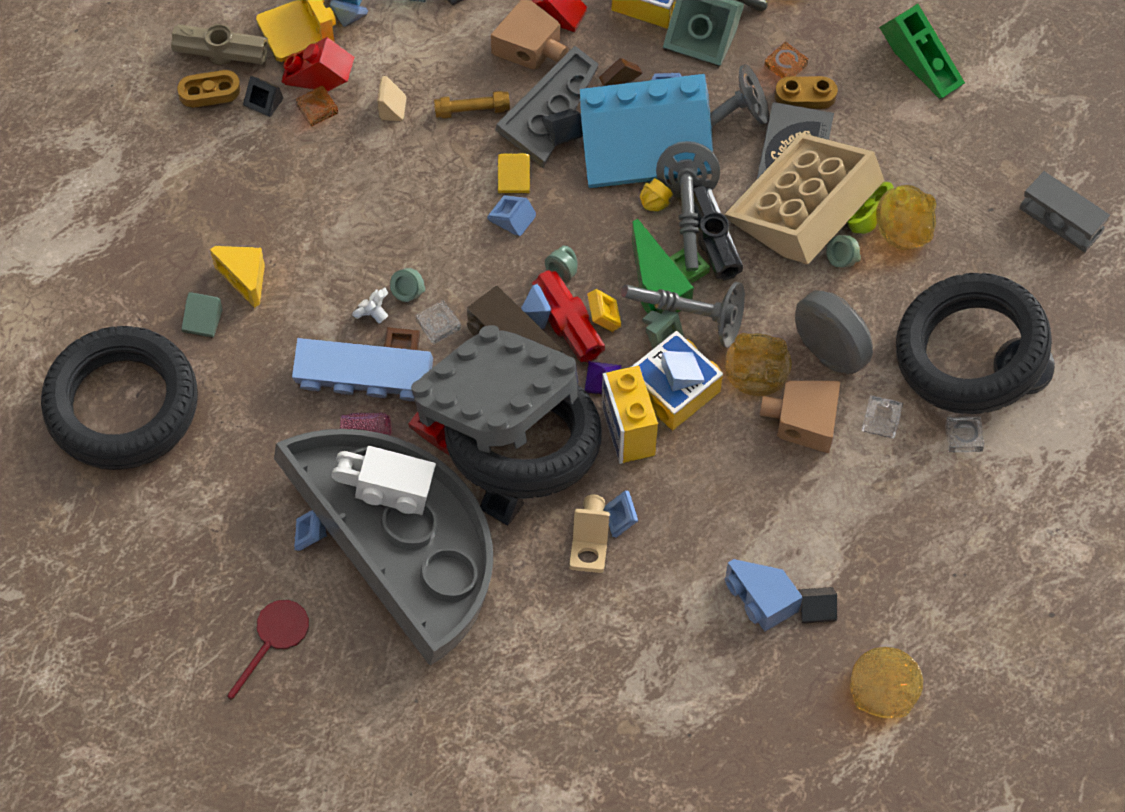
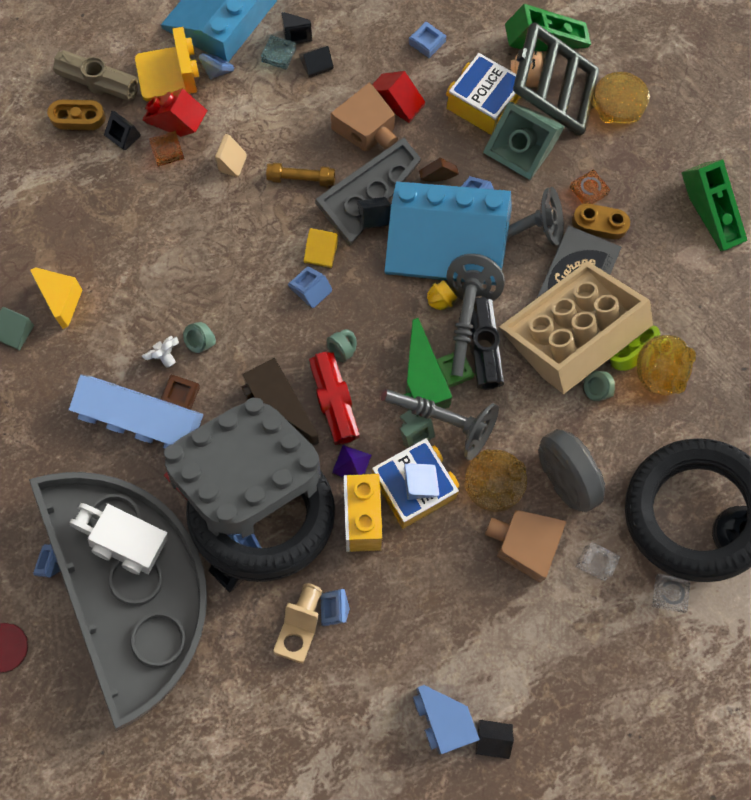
camera: 10 degrees right, 10 degrees up
(373, 422) = (126, 468): clear pink piece -> none
(438, 322) = (218, 377): clear tile -> none
(537, 306) = (306, 384): medium blue slope -> none
(604, 310) = (367, 399): yellow tile -> none

